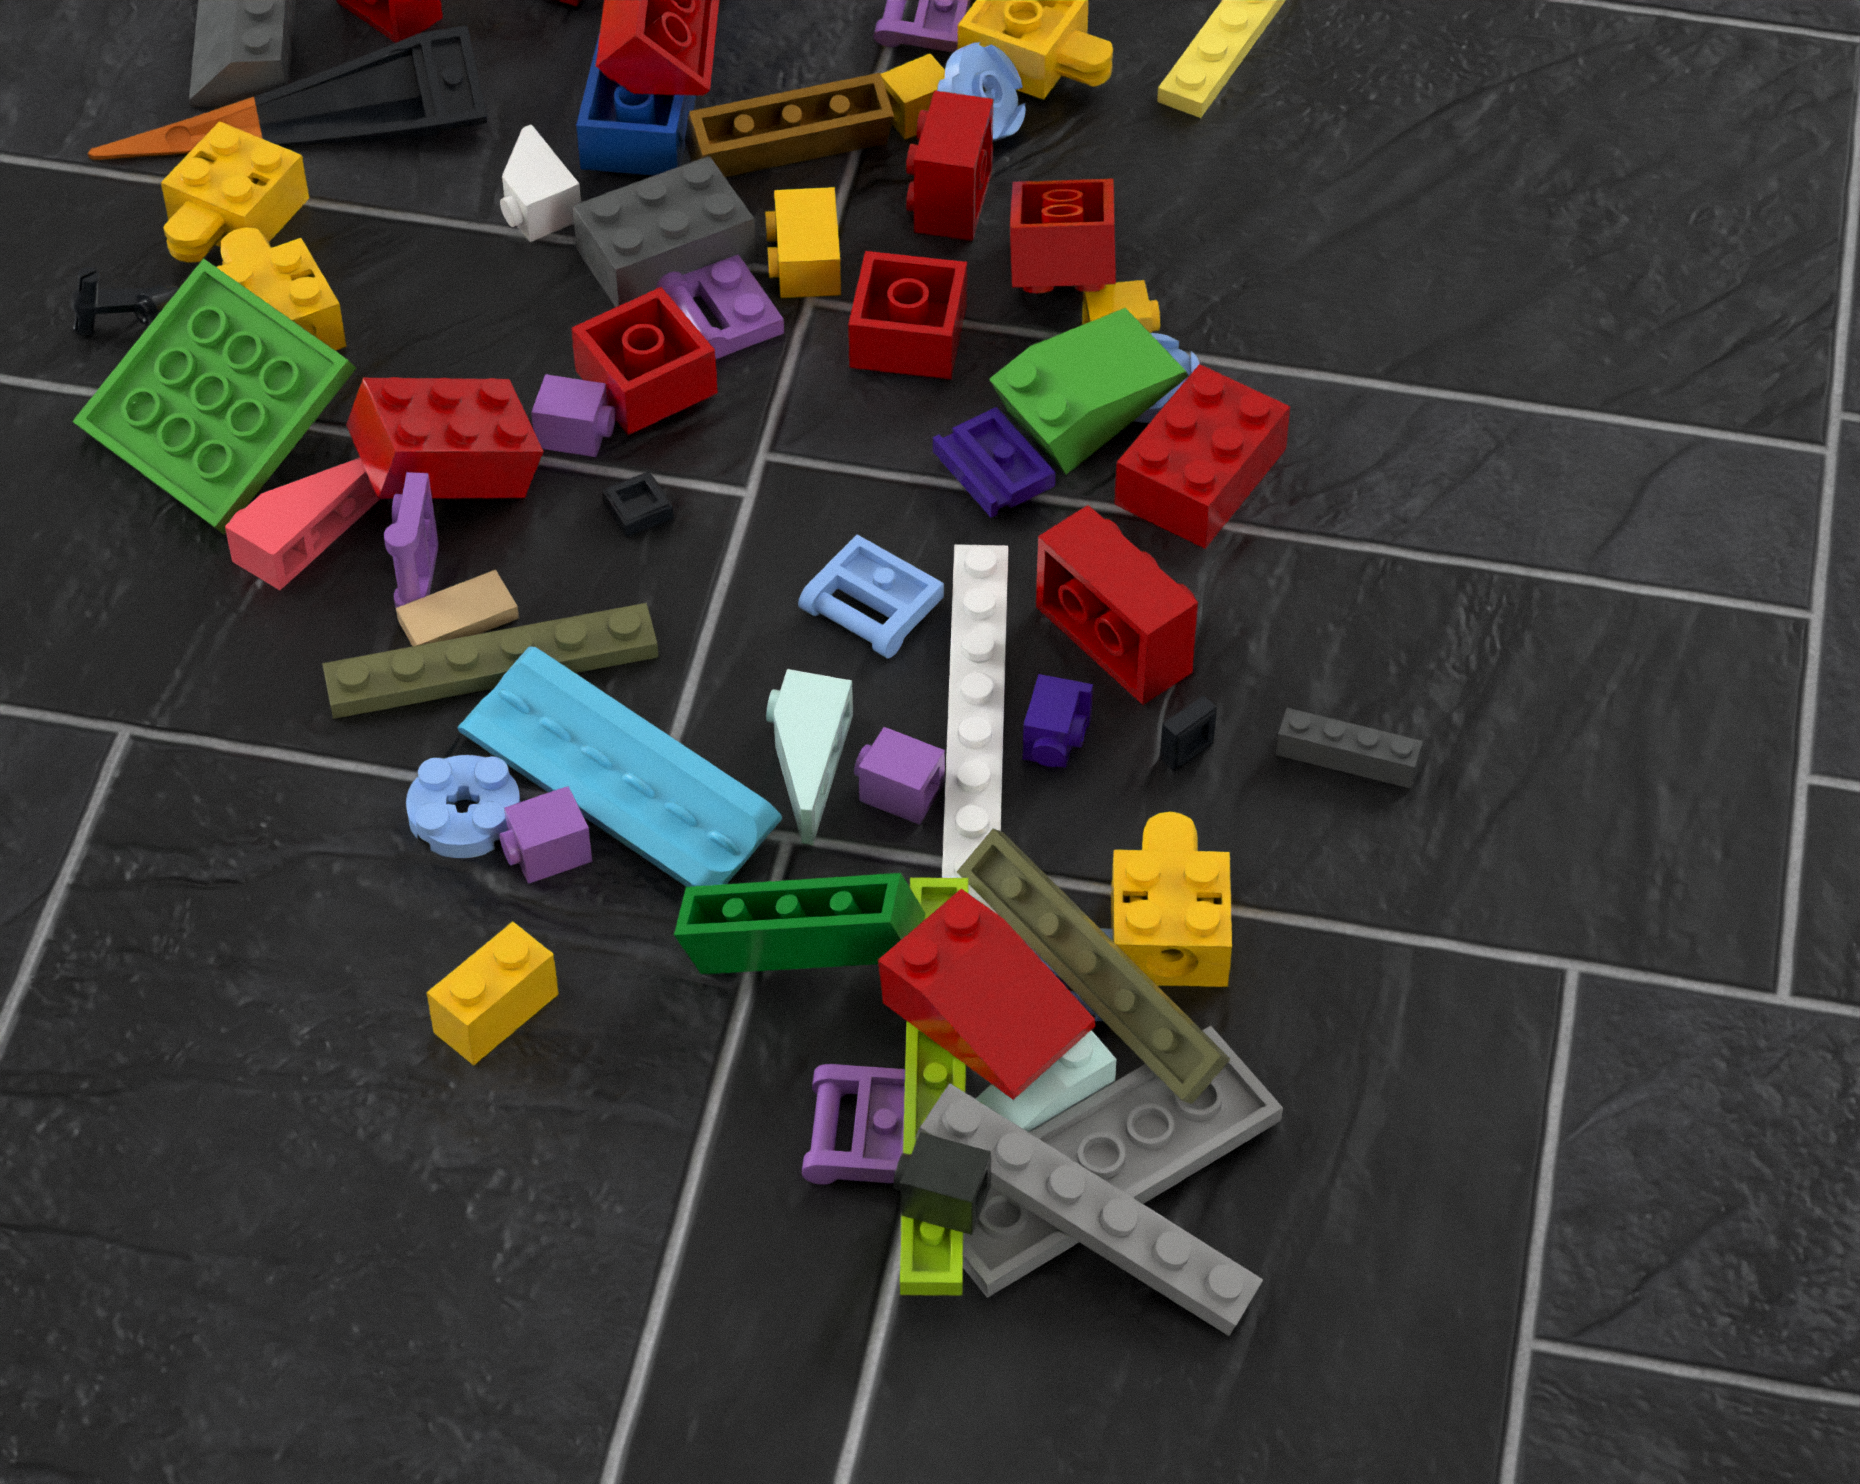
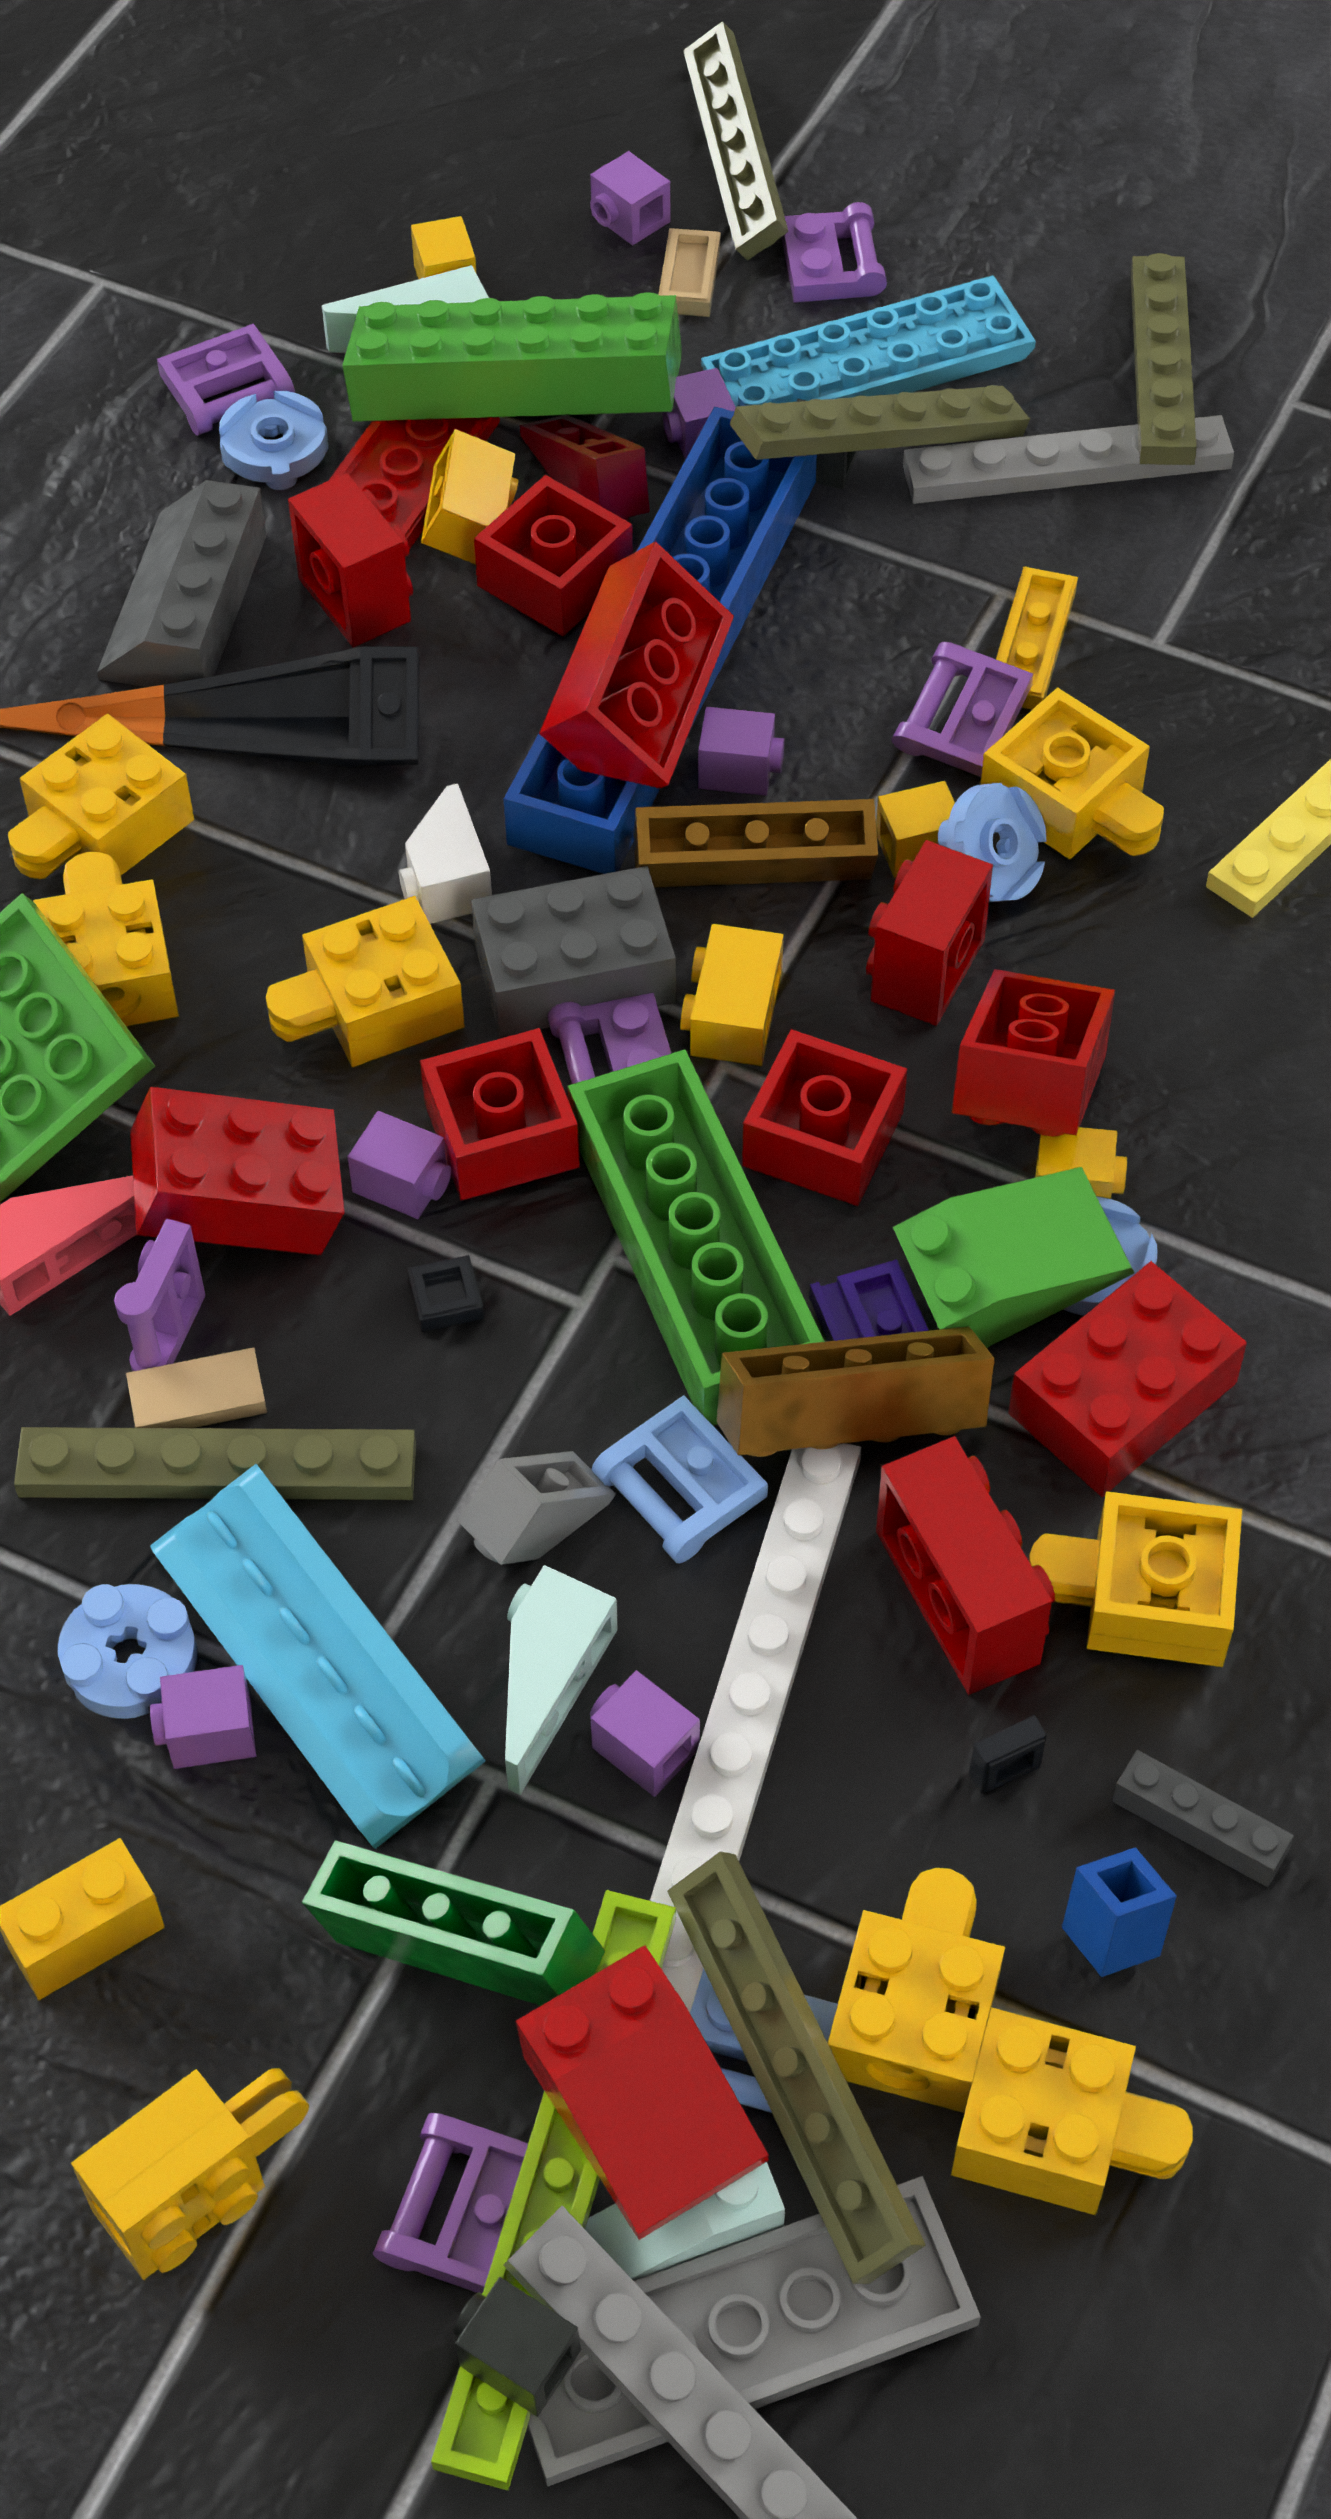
camera: 15 degrees right, 5 degrees up
(507, 287) = (373, 982): none -> yellow brick
(637, 1137) = (185, 2165): none -> yellow brick
(752, 63) = (738, 751): none -> medium lavender brick
(759, 636) = (532, 1505): none -> light grey slope
(834, 419) = (687, 1220): none -> bright green brick
(992, 499) = (854, 1390): none -> pearl gold brick
(1056, 720) = (851, 1701): dark purple brick -> none
(1267, 586) = (1153, 1578): none -> yellow brick
(1301, 962) = (1056, 2114): none -> yellow brick
(1306, 816) = (1118, 1911): none -> blue brick

